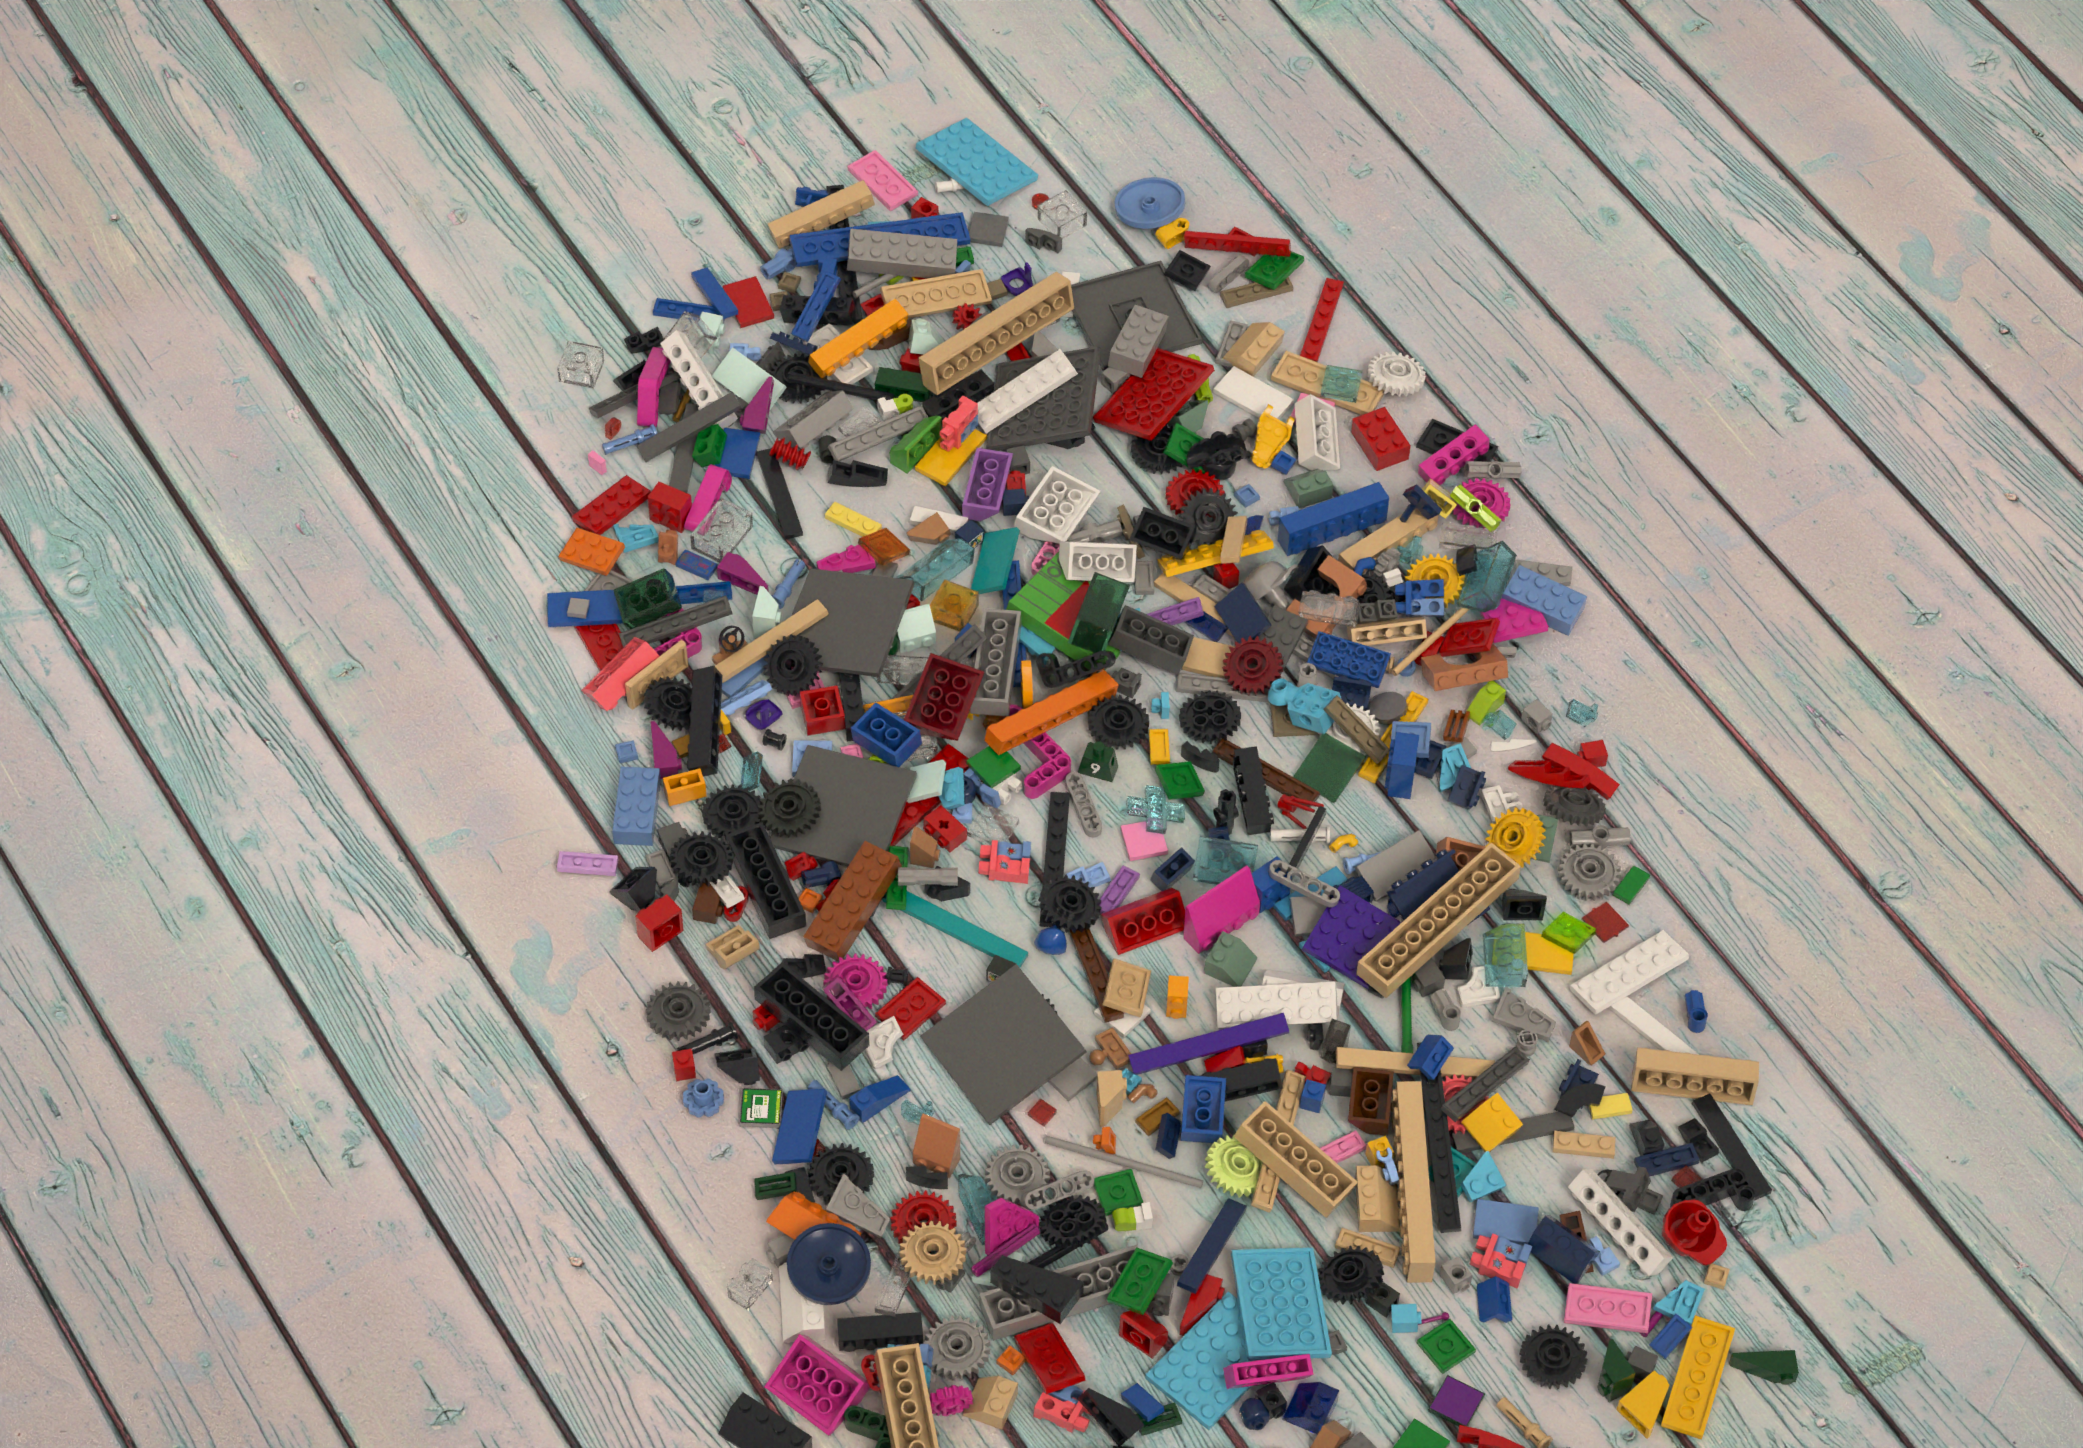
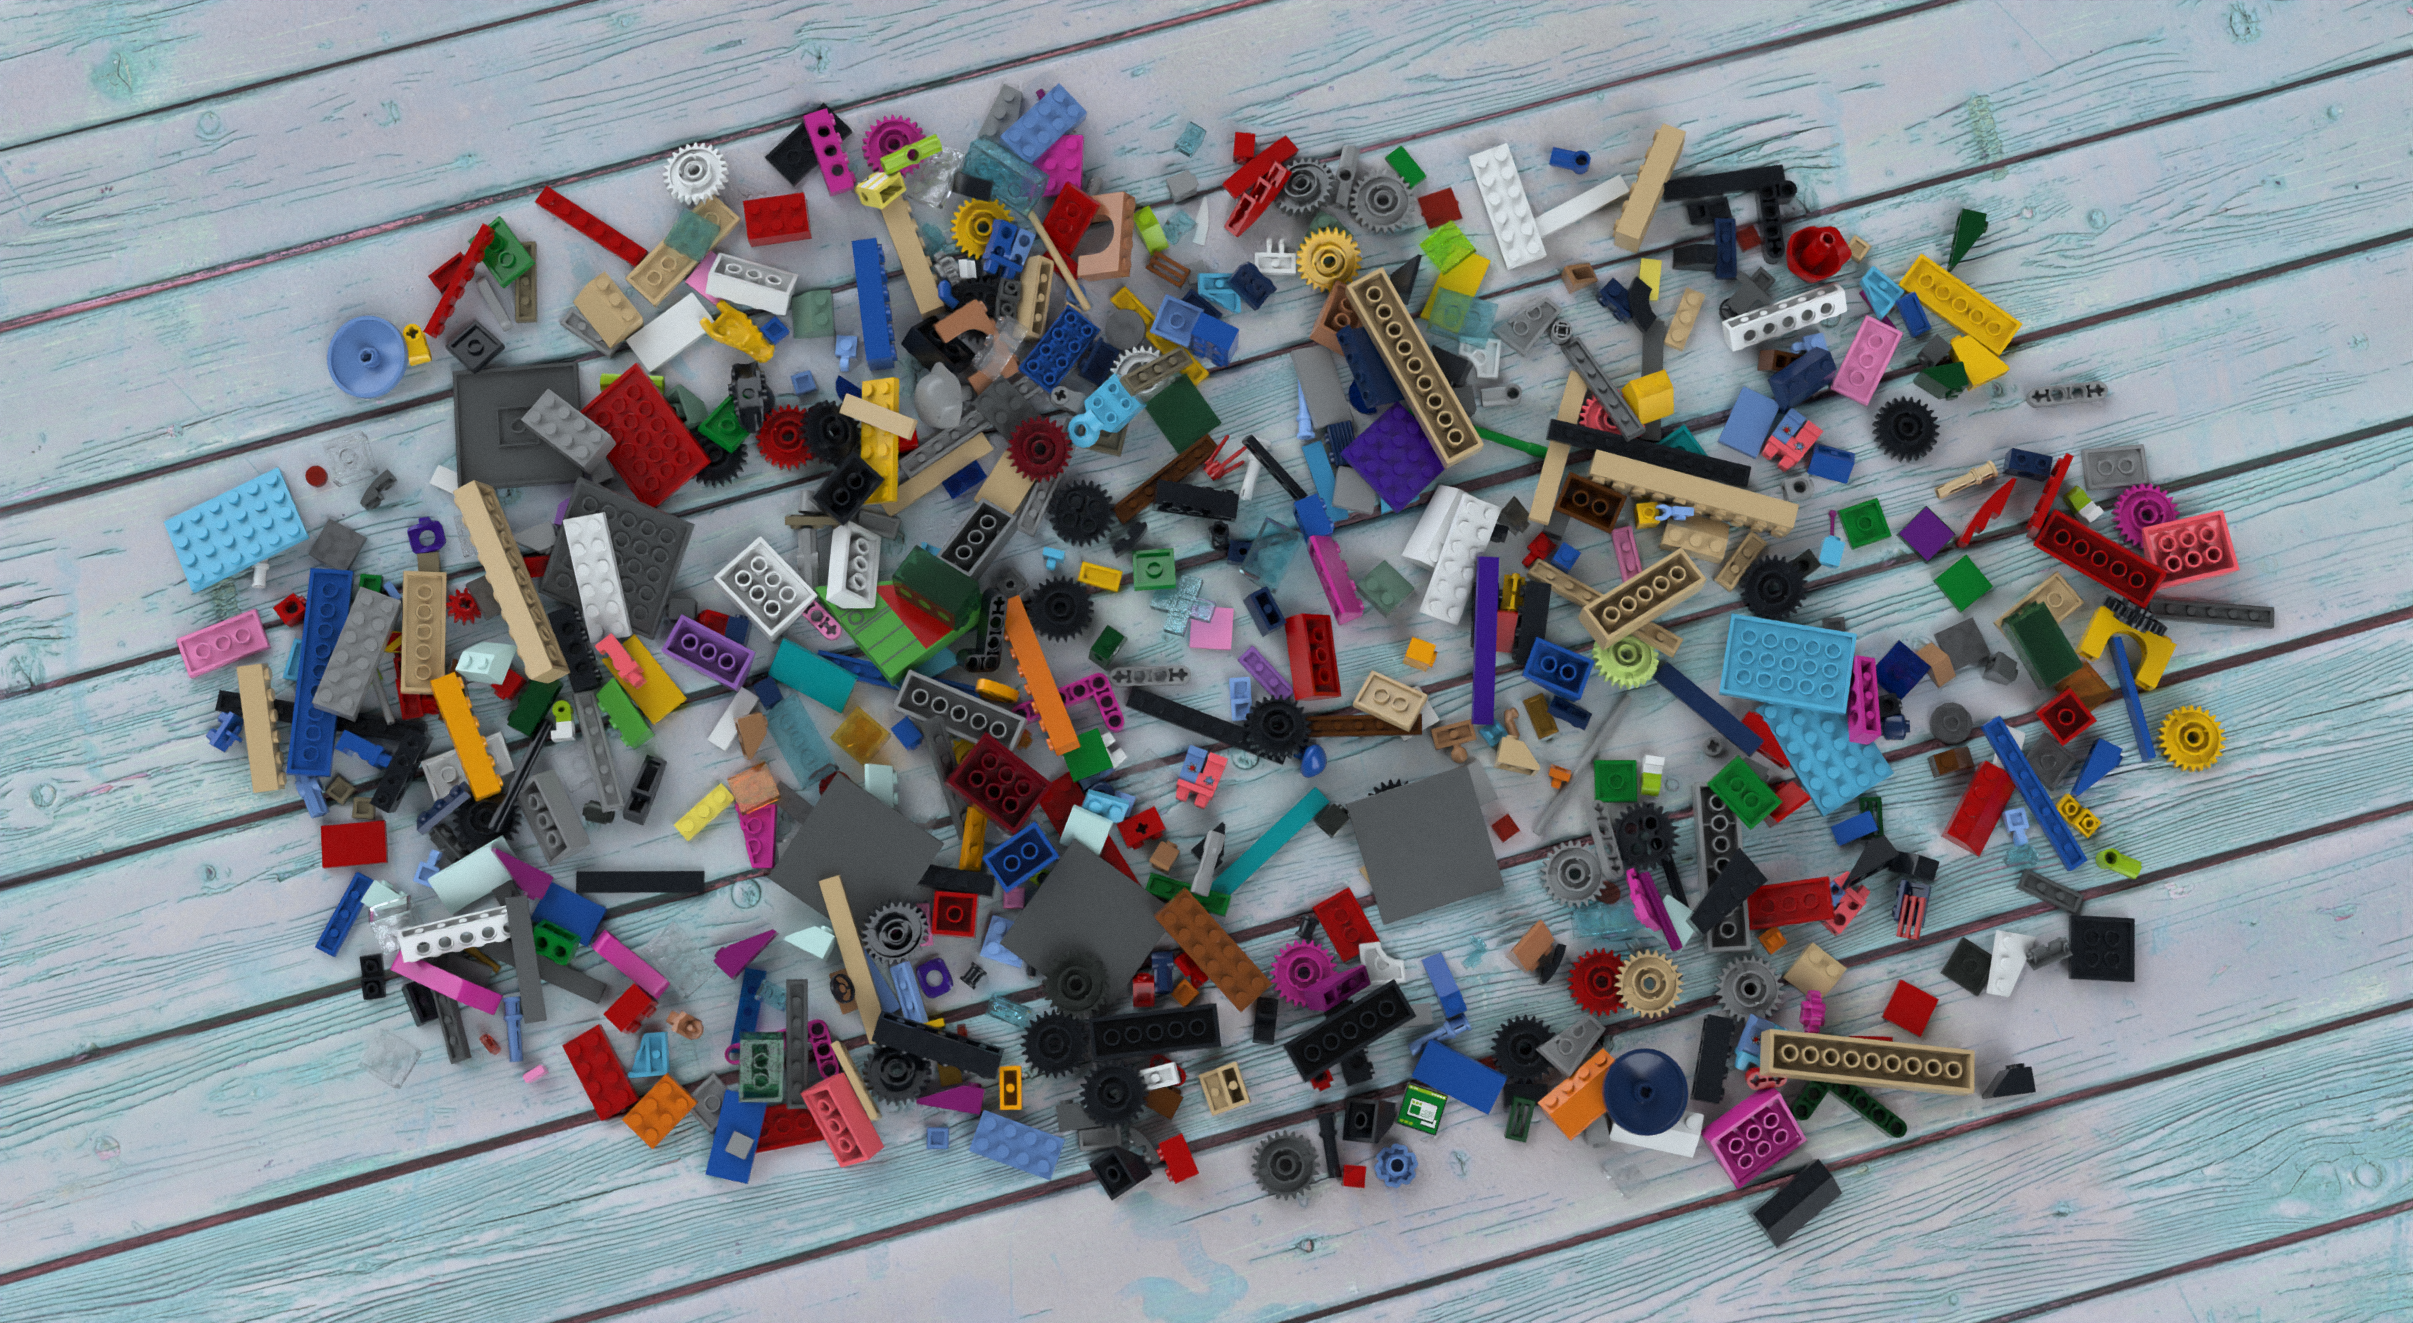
camera: 75 degrees left, 25 degrees up
(587, 863) = (1073, 1215): lavender plate -> none
(696, 564) = (710, 999): blue tile -> none
(714, 293) = (331, 879): blue tile -> none
(783, 589) = (776, 912): medium blue pin -> none
(790, 453) = (596, 854): red piece -> none
(816, 306) = (405, 771): blue tile -> none
(893, 1289) = (1670, 1032): clear tile -> none
(990, 796) = (1119, 770): medium blue tile -> none
(1179, 612) = (942, 508): medium lavender tile -> none
(1242, 614) = (972, 439): dark blue tile -> none
(1245, 430) = (719, 357): dark grey wheel -> none
(1302, 886) = (1338, 488): light grey beam -> none
(1342, 840) = (1271, 429): yellow arm -> none
(1421, 501) = (890, 207): dark blue plate -> none
(1431, 1055) = (1569, 431): blue panel -> none
(1482, 1179) = (1700, 427): medium azure wing -> none
(1502, 469) = (857, 119): light grey piece -> none

